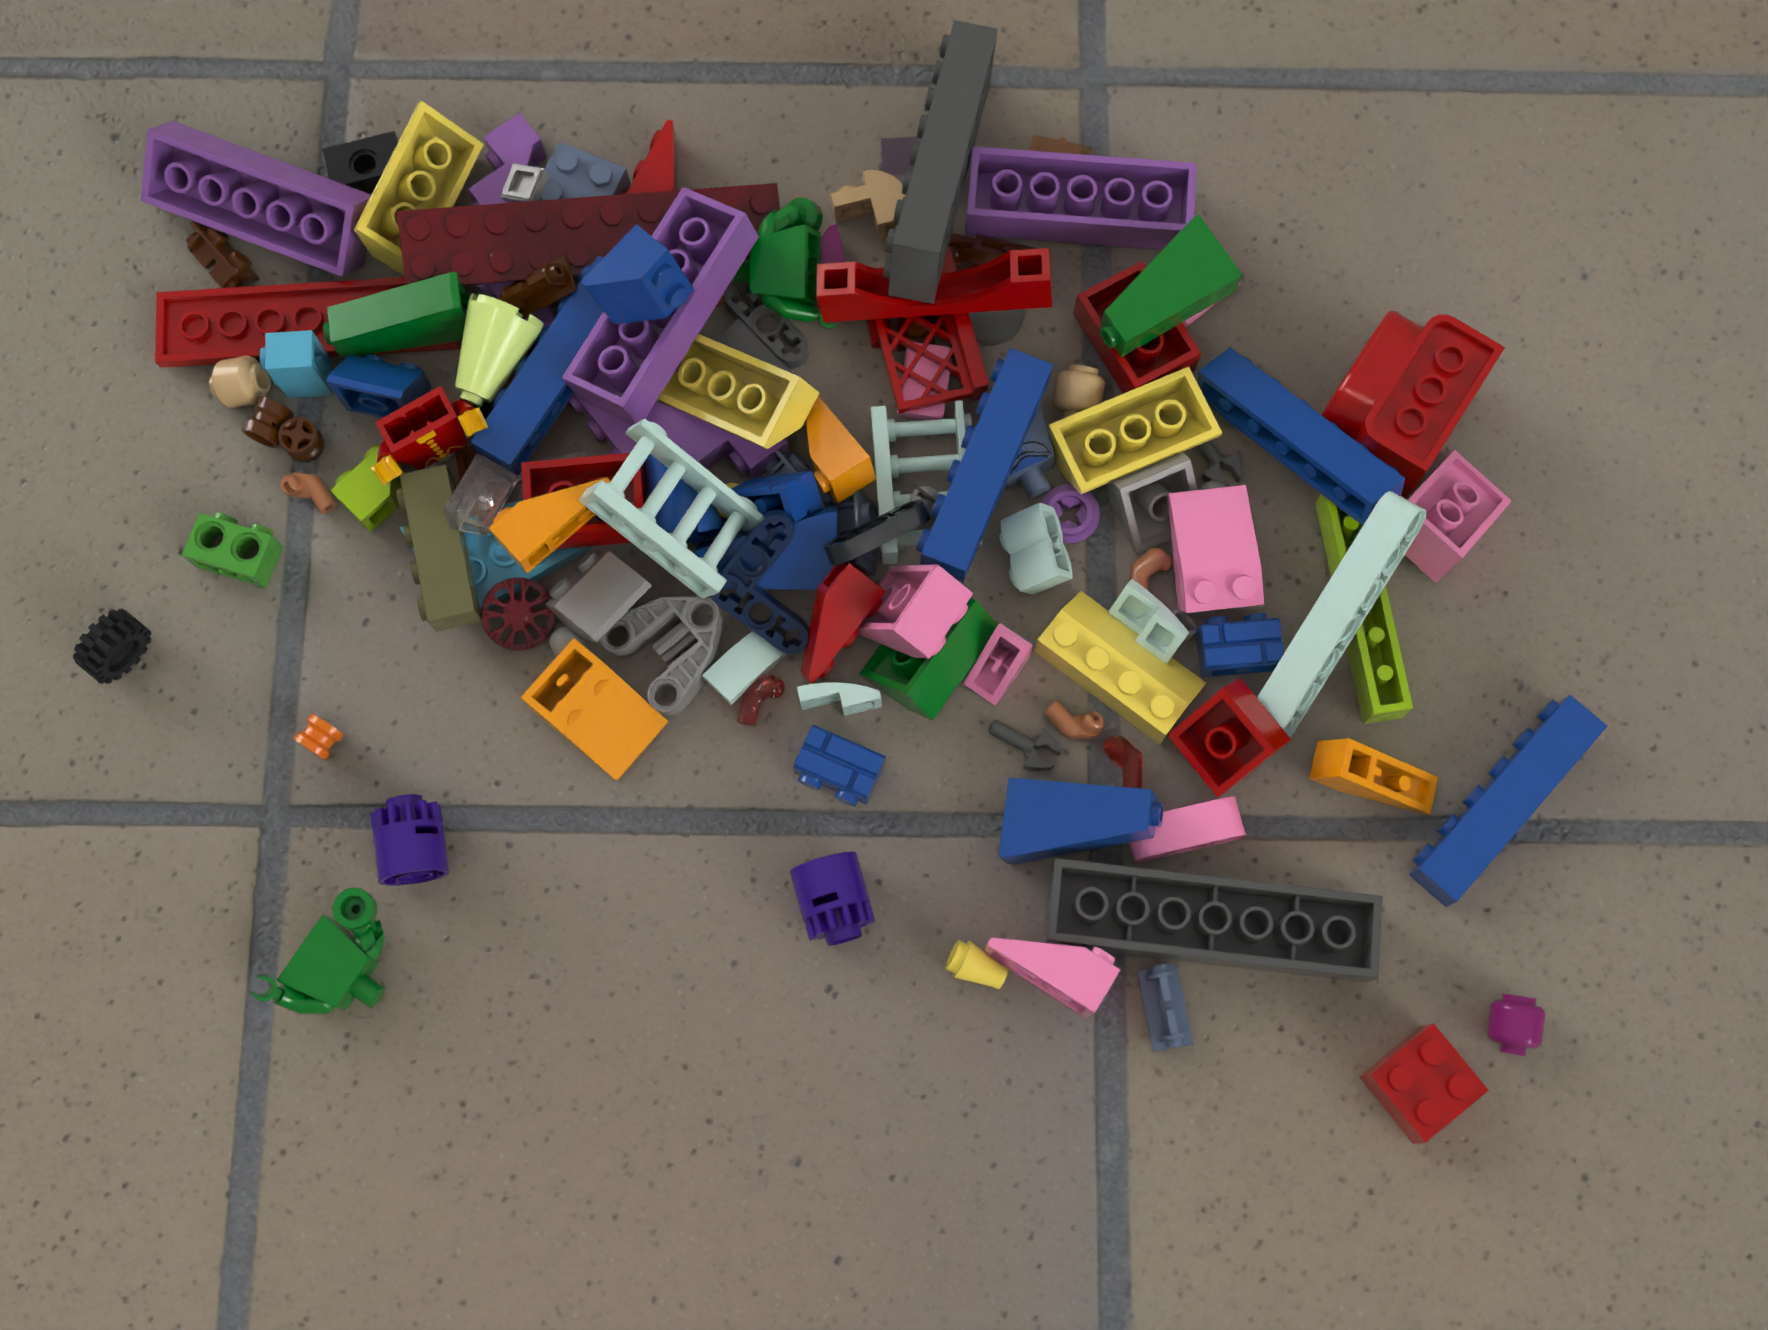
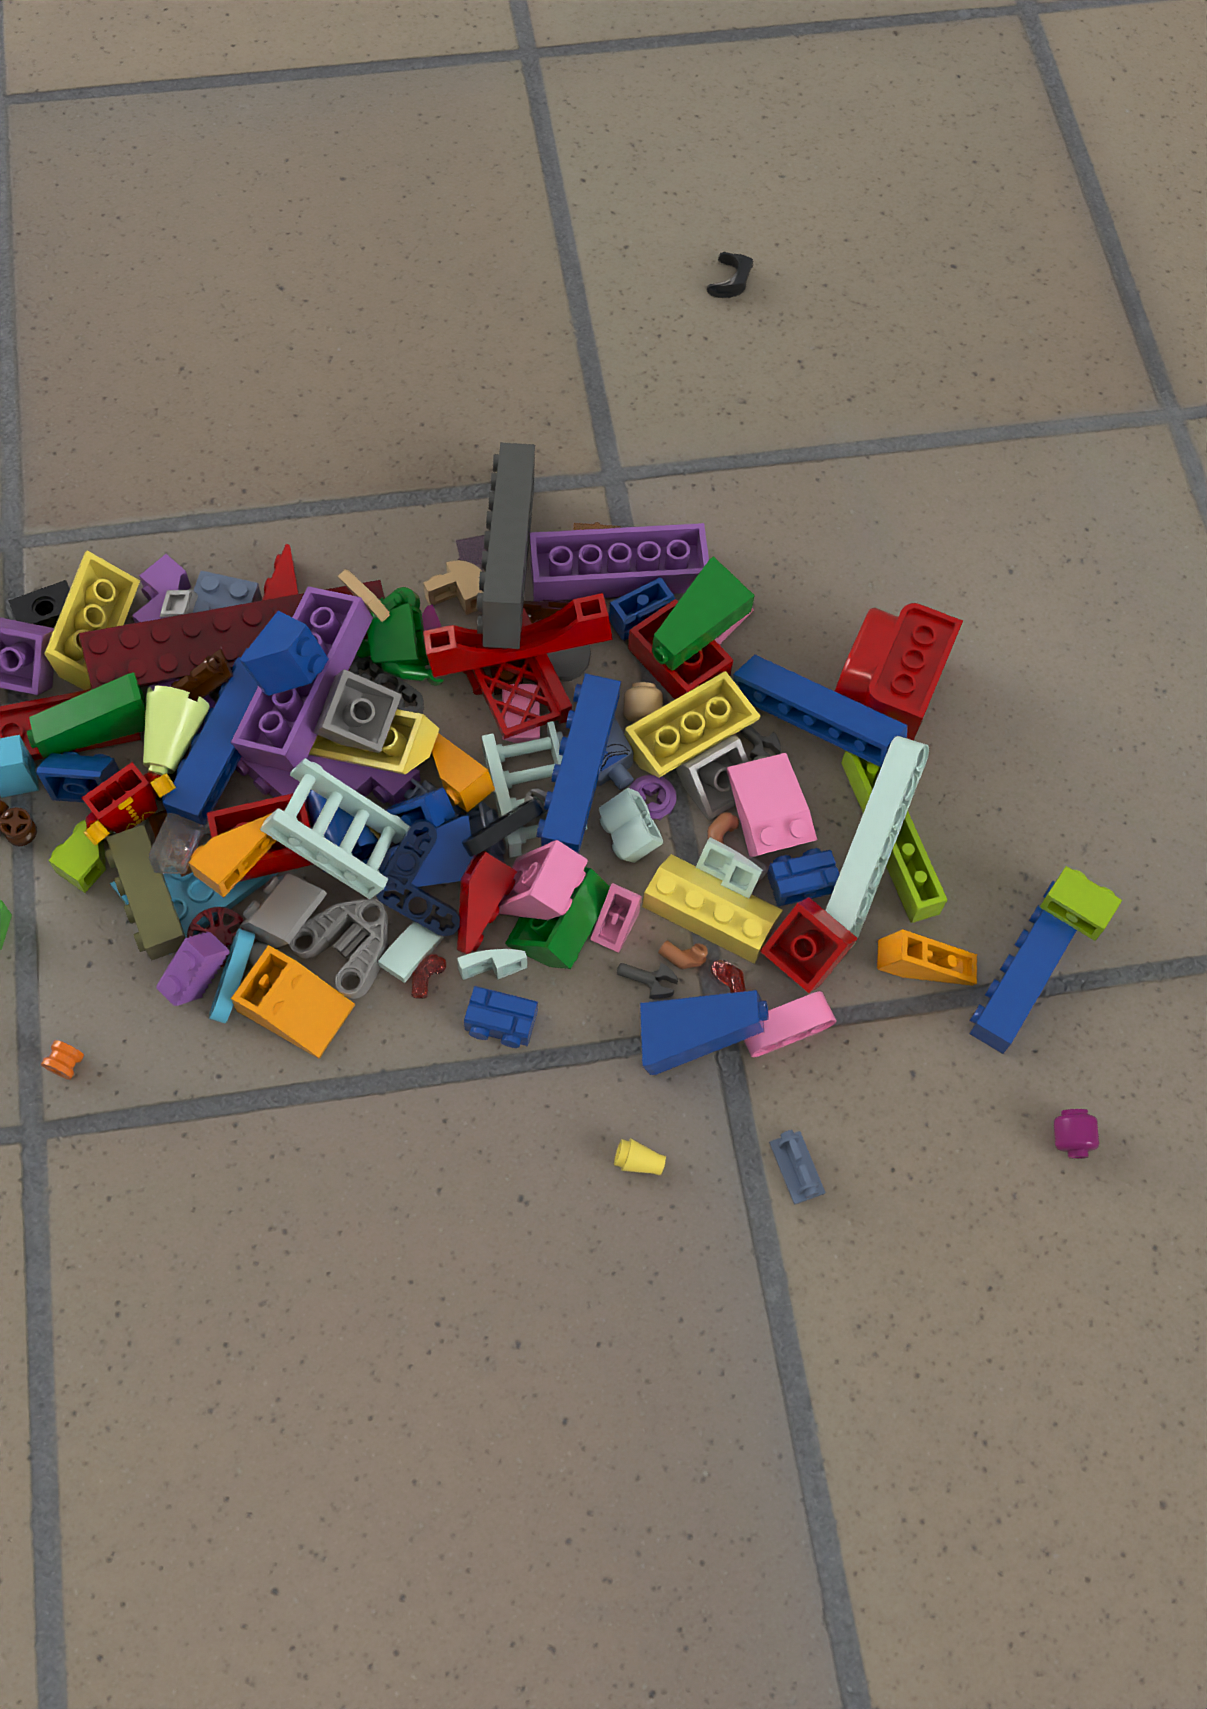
camera: 15 degrees left, 10 degrees down
(309, 487) = (29, 863): nougat arm -> none
(331, 963) = (96, 1243): green torso -> none
(409, 841) = (152, 1131): dark purple gear -> none
(481, 652) = (192, 968): none -> medium lavender brick
(527, 665) = (231, 975): none -> medium azure beam
(720, 361) = (357, 712): none -> light grey slope
(751, 206) = (360, 590): none -> tan tile
(833, 897) = (513, 1120): dark purple gear -> none
(1062, 971) = (708, 1147): bright pink slope -> none
(1095, 262) = (638, 605): none -> blue brick
(1214, 920) = (822, 1090): dark grey brick -> none
(1423, 1083) = (1014, 1192): red brick -> none
(1458, 510) = (951, 756): bright pink slope -> none
(1582, 738) = (1081, 903): none -> lime brick

